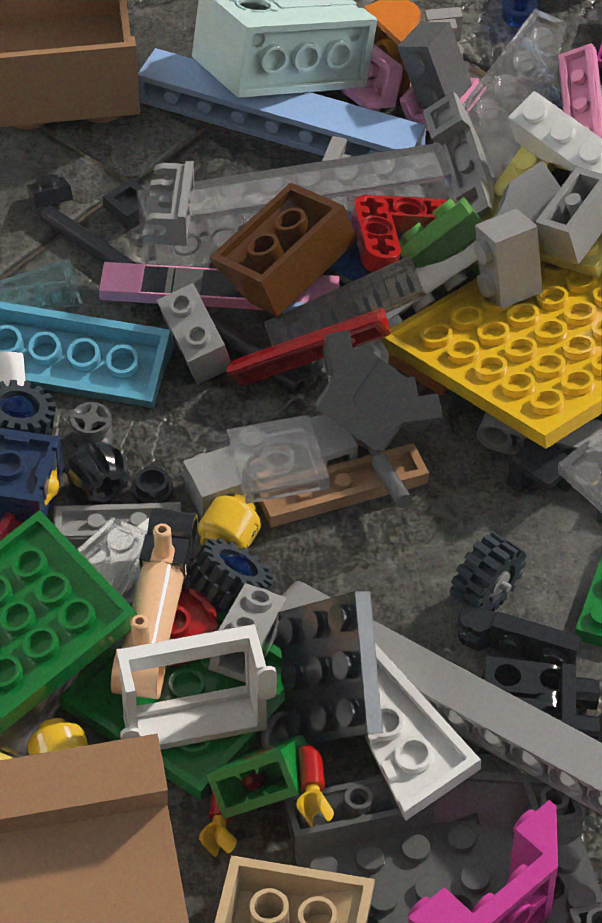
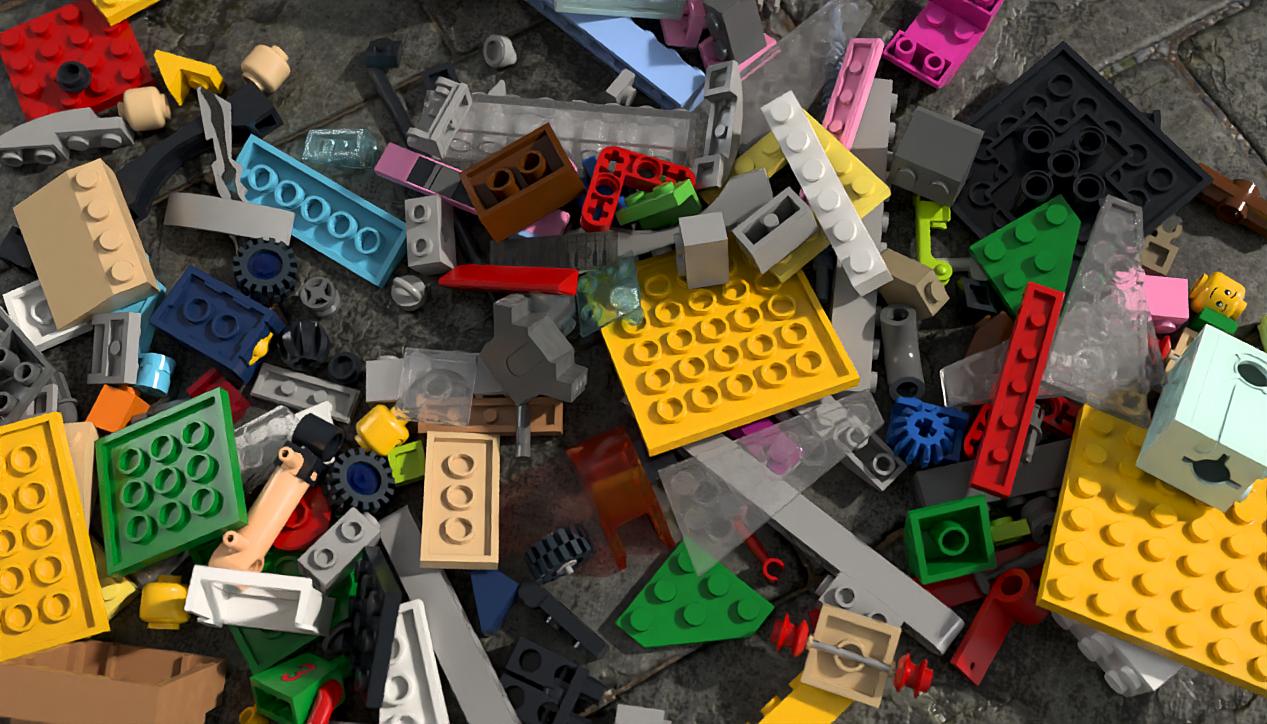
camera: 25 degrees right, 20 degrees up
(179, 152) = (499, 51): none -> light grey tile
(188, 400) = (408, 292): none -> light grey tile
(275, 549) = (408, 463): none -> lime plate
(357, 552) = (461, 501): none -> tan plate
(425, 328) = (609, 296): none -> clear light blue hinge
(427, 626) = (494, 598): none -> dark blue slope
(519, 489) = (616, 487): none -> clear red piece

